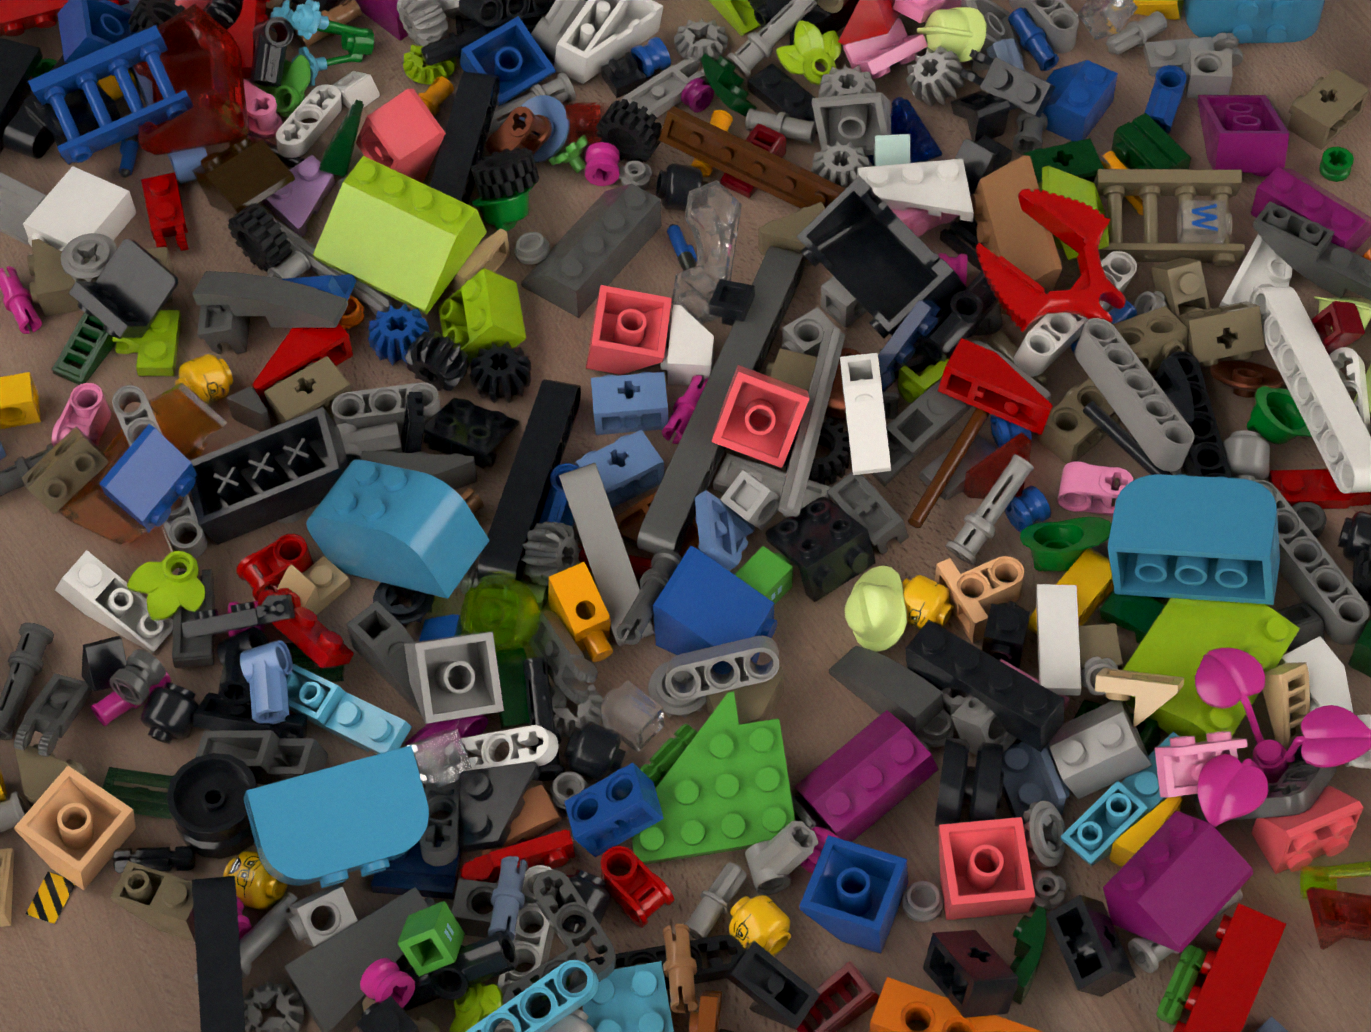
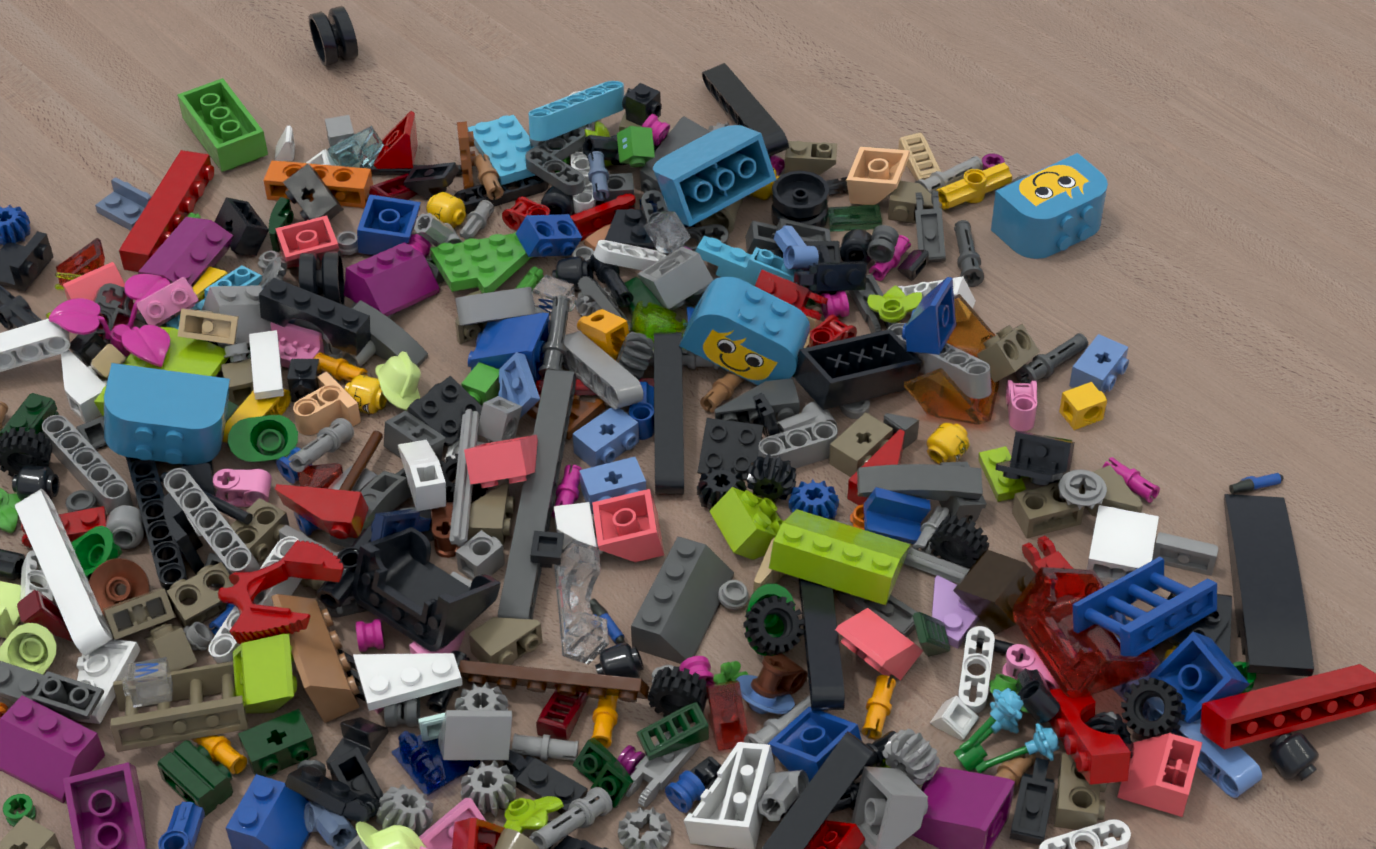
camera: 165 degrees right, 10 degrees down
(634, 88) = (670, 723): none -> dark green slope

